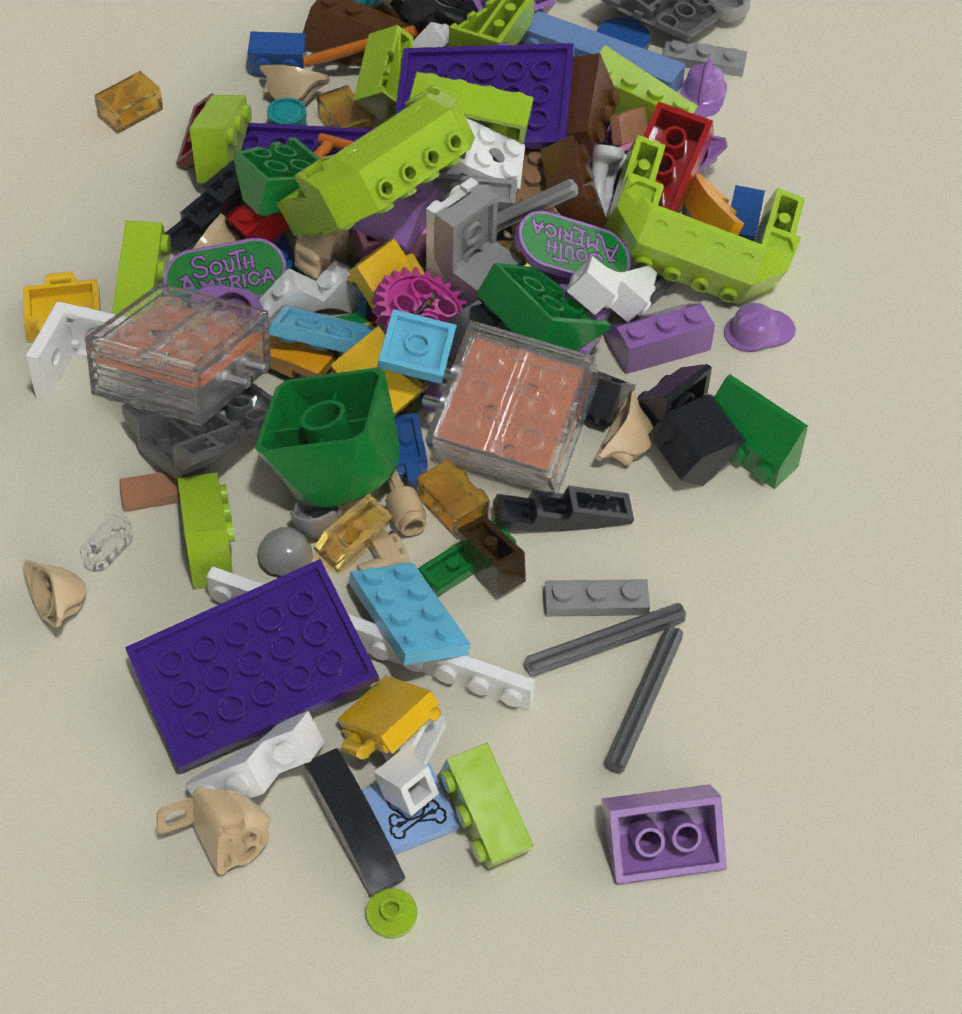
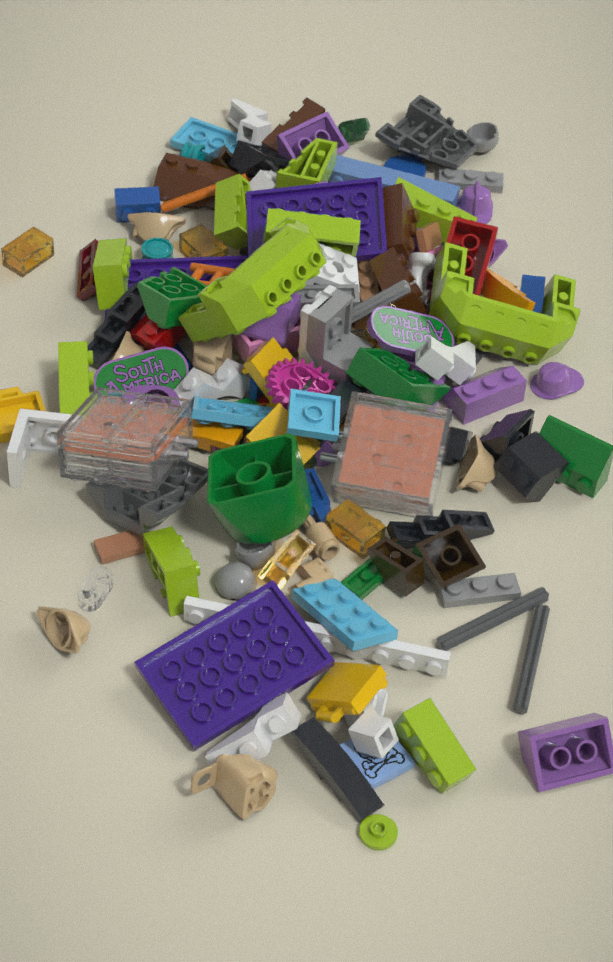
camera: 10 degrees left, 5 degrees down
(561, 550) = (448, 557): none -> dark brown slope

